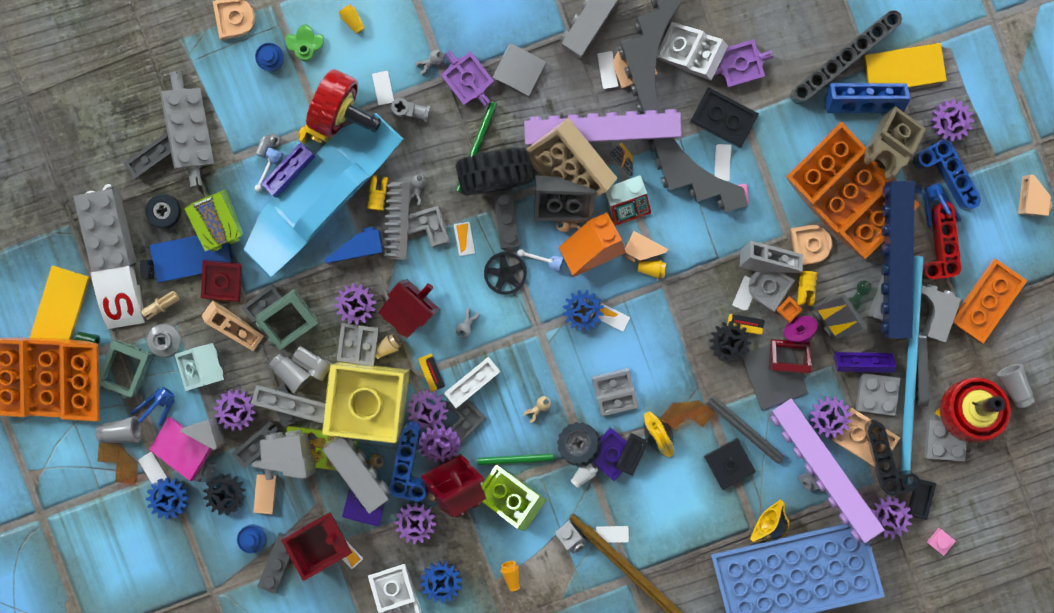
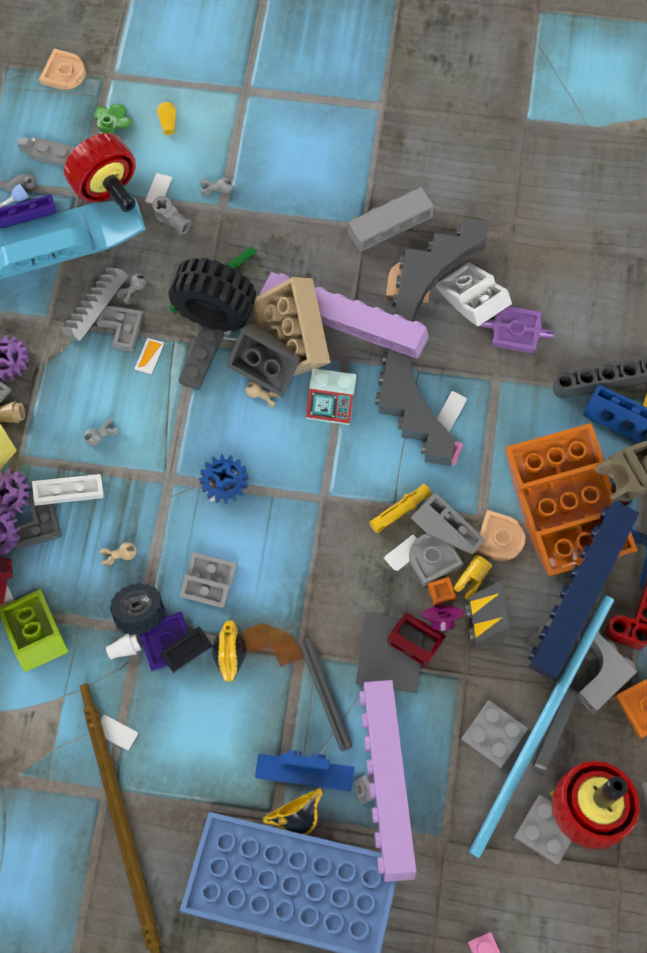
camera: 30 degrees right, 20 degrees down
(269, 57) = (72, 113): blue plate -> none
(271, 102) = (45, 150): none -> light grey hinge
(305, 132) = (62, 189): yellow bracket -> none
(361, 245) = (41, 308): blue slope -> none
(377, 197) = (90, 274): yellow hinge -> none
(408, 307) = (50, 380): dark red piece -> none
(431, 372) = (35, 462): sticker -> none
(467, 78) = (241, 216): medium lavender plate -> none
(505, 273) = (169, 407): black wheel -> none
(515, 459) = (64, 594): green bar -> none
(519, 69) = (295, 232): light grey slope -> none
(554, 262) = (223, 420): hinge -> none
(571, 538) = (68, 709): light grey bracket -> none
(592, 245) = (271, 418): orange slope -> none
(607, 71) = (380, 277): white sticker -> none
(614, 318) = (251, 506): white sticker -> none
(624, 158) = (351, 359): sticker -> none
(641, 248) = (320, 449): light nougat slope -> none
(652, 268) = (321, 476): yellow cone -> none
(724, 117) = (474, 371): black tile -> none
(725, 330) = (367, 591): black gear -> none
(726, 262) = (407, 503): none -> yellow pin
(729, 463) = (287, 723): black plate -> none
(752, 324) = (387, 584): sticker -> none
(759, 492) = (304, 770): none -> blue bracket
(828, 426) = (425, 720): medium lavender gear -> none
(856, 440) = (455, 777): light nougat tile -> none
(861, 291) = (530, 612): clear green arm -> none
(864, 362) = (496, 688): dark purple plate -> none
(886, 456) = (465, 803): black beam -> none
(897, 514) = (450, 882): medium lavender gear -> none
(922, 499) = (485, 884): black tile -> none

